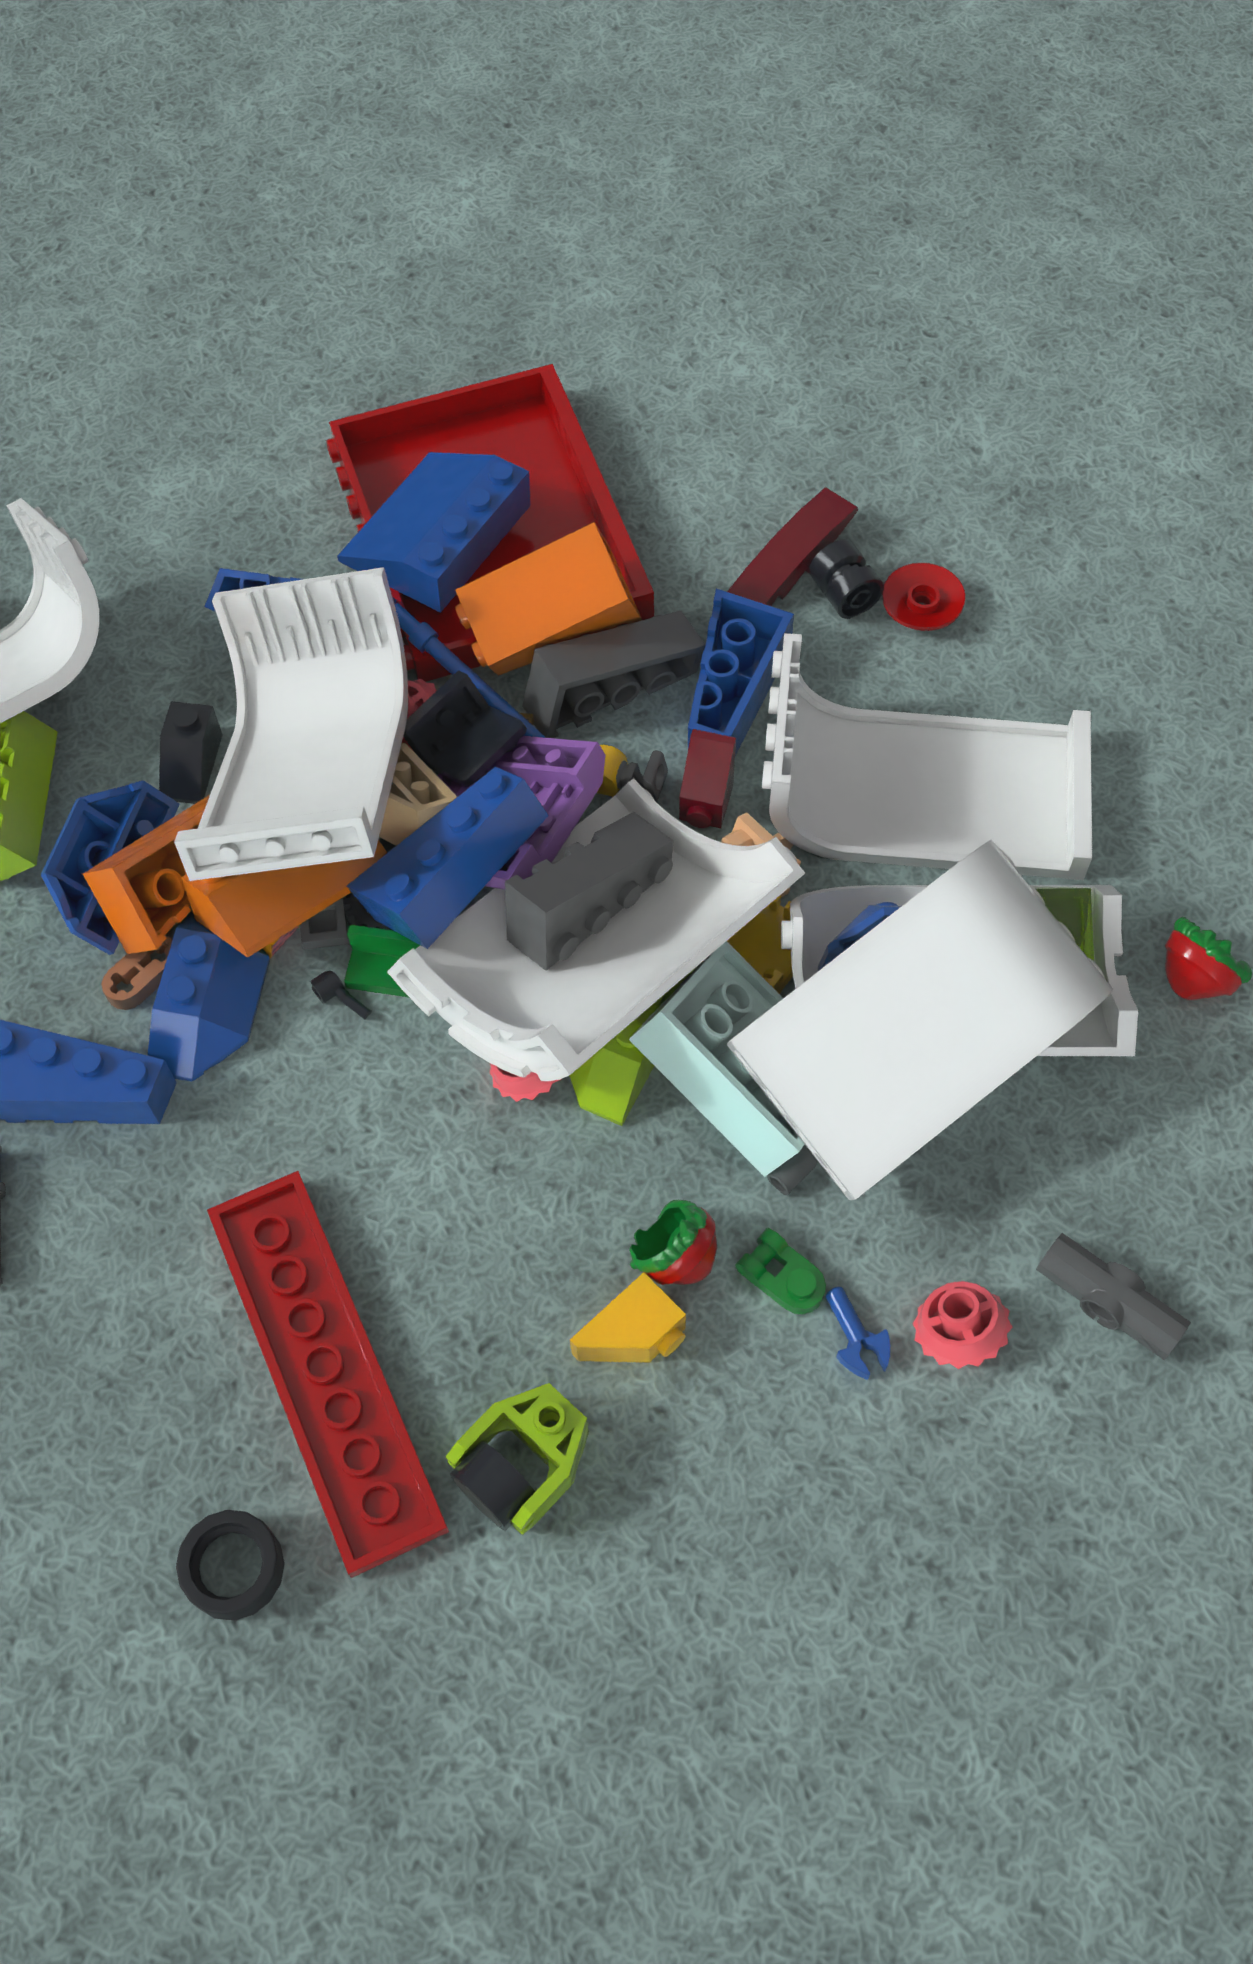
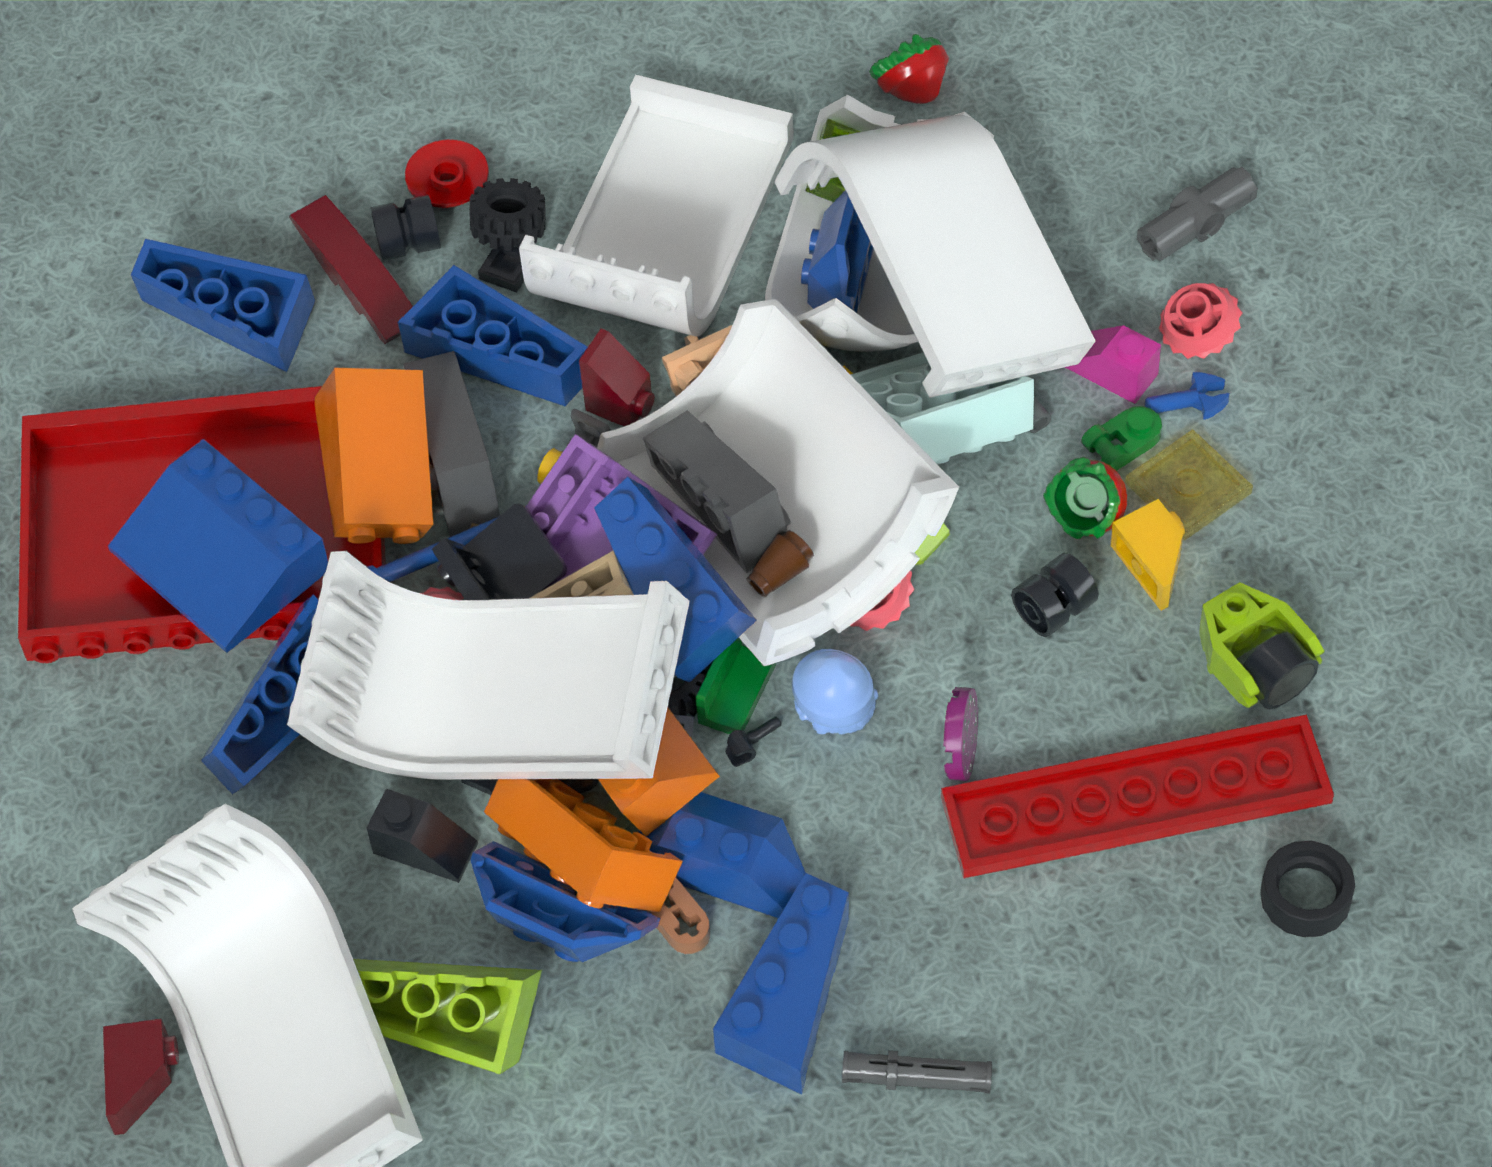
camera: 75 degrees left, 5 degrees down
(350, 1173) = (961, 733): none -> magenta tile
(396, 1051) = (833, 692): none -> light blue hair
(509, 960) = (780, 563): none -> reddish brown cone
(544, 1231) = (1055, 594): none -> black wheel
(717, 484) = (228, 298): none -> blue wedge
(739, 1354) = (1190, 481): none -> clear yellow tile
(837, 674) = (503, 269): none -> black tile
(875, 1243) = (1121, 362): none -> dark pink slope
(878, 668) = (506, 213): none -> black tyre

